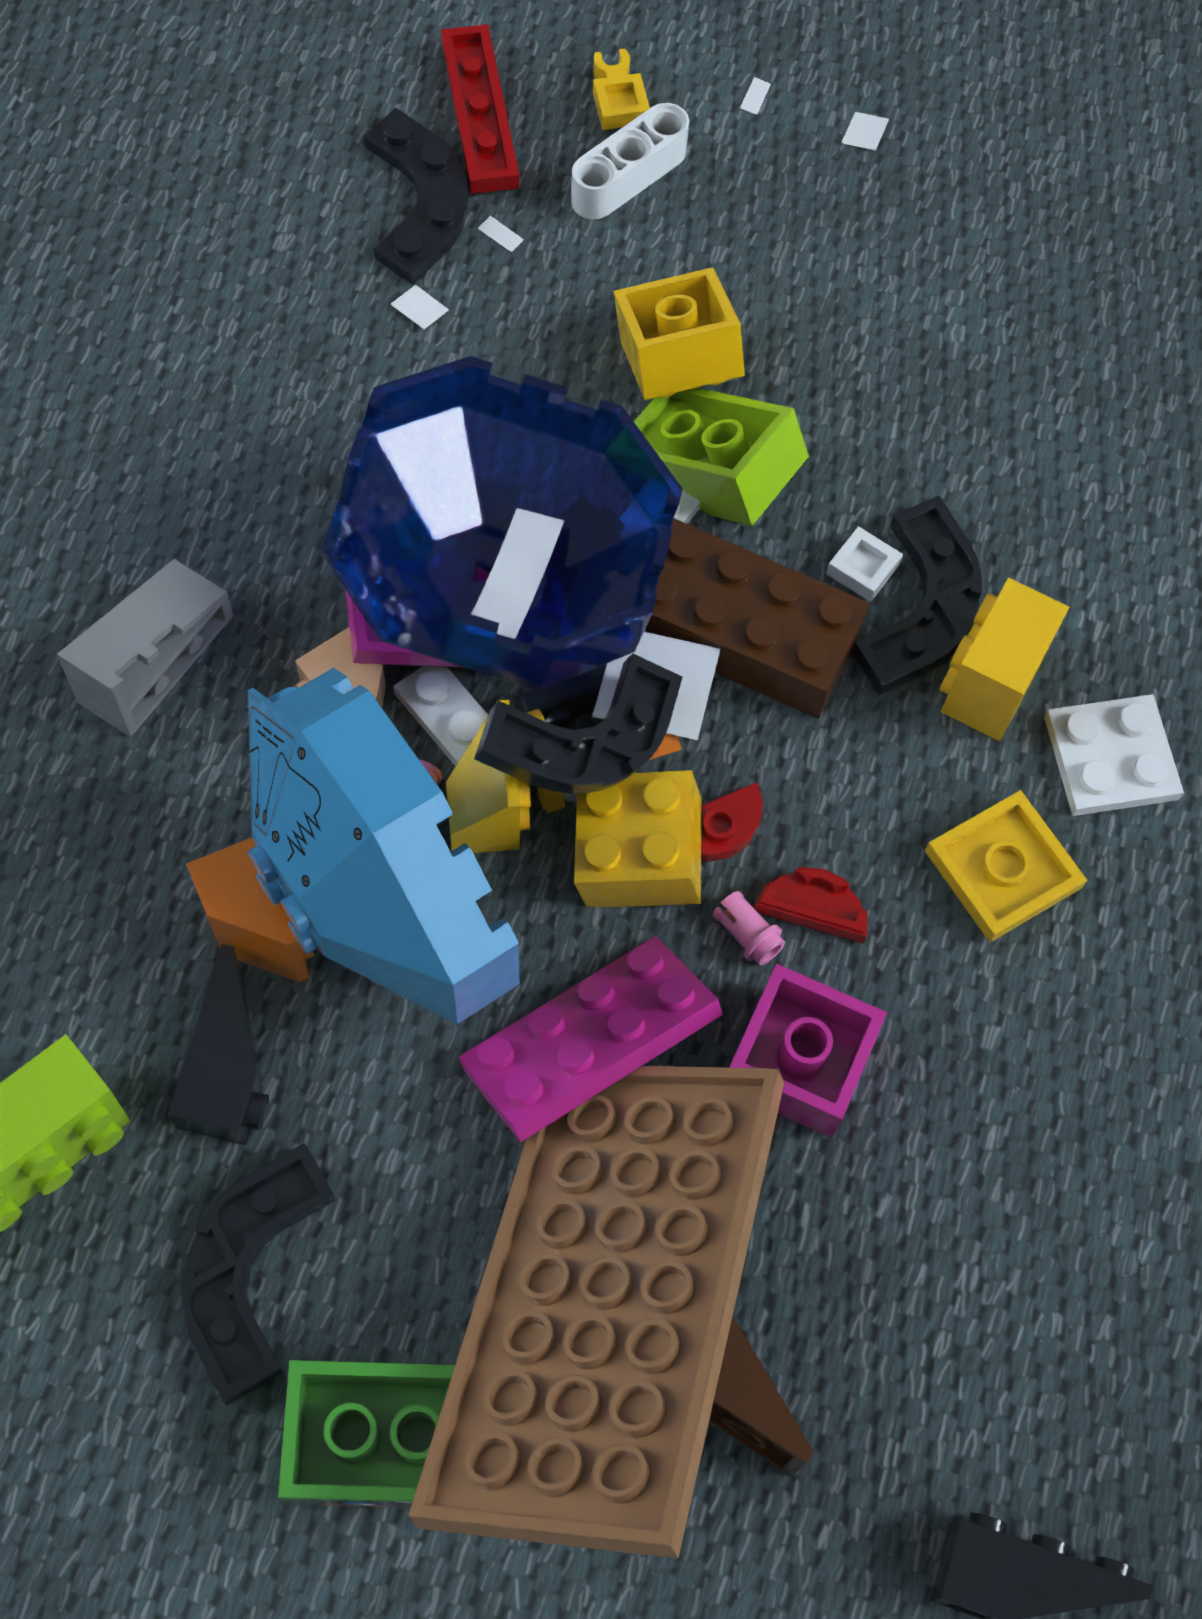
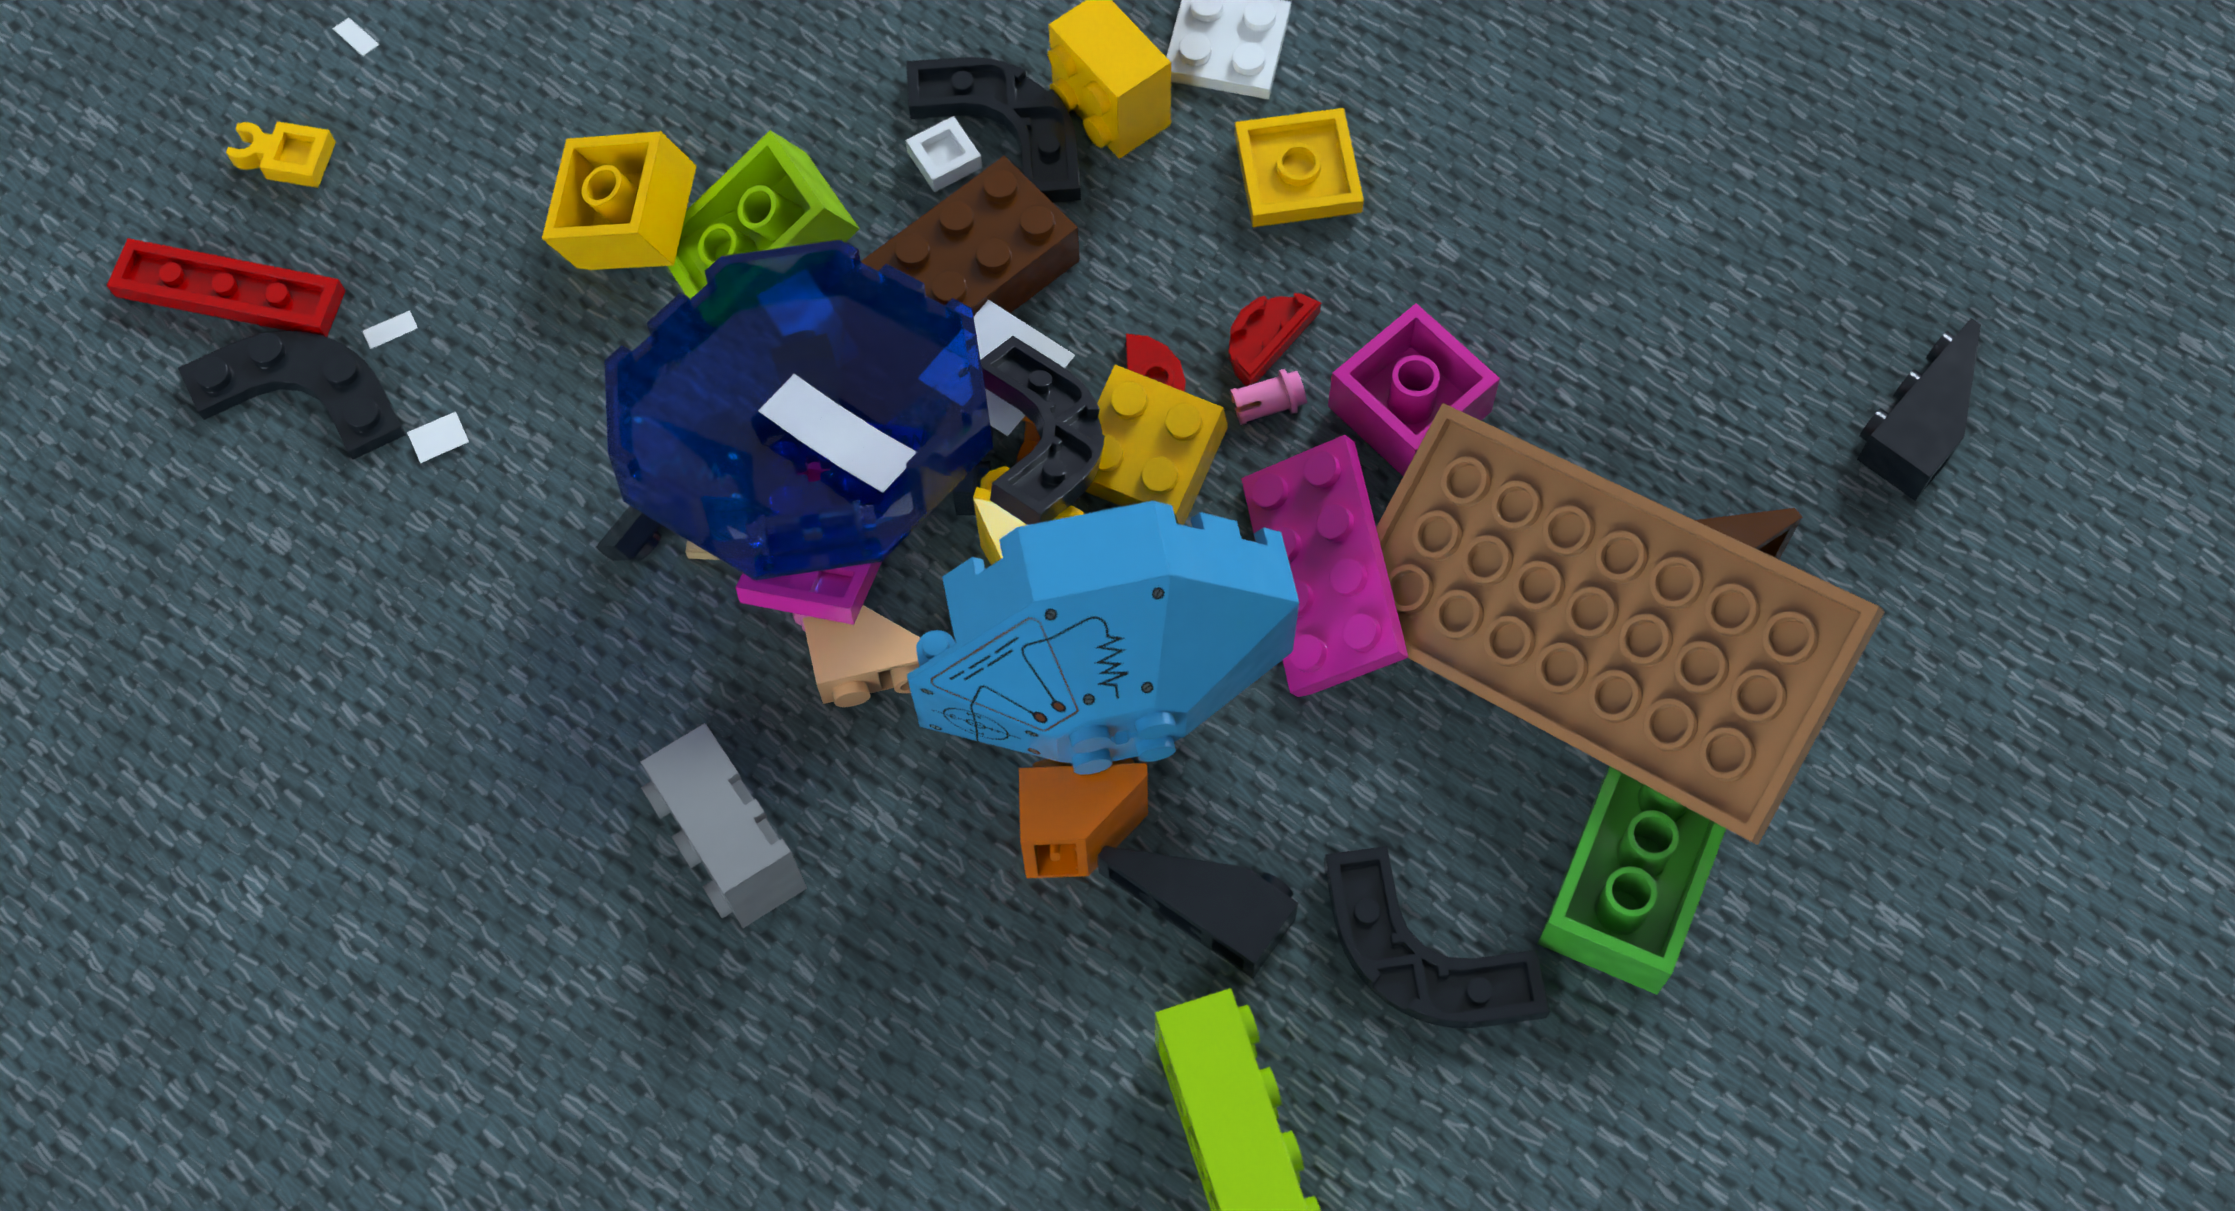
camera: 60 degrees left, 0 degrees up
(442, 708) = (914, 575): white plate -> none
(629, 161) = (379, 173): white beam -> none

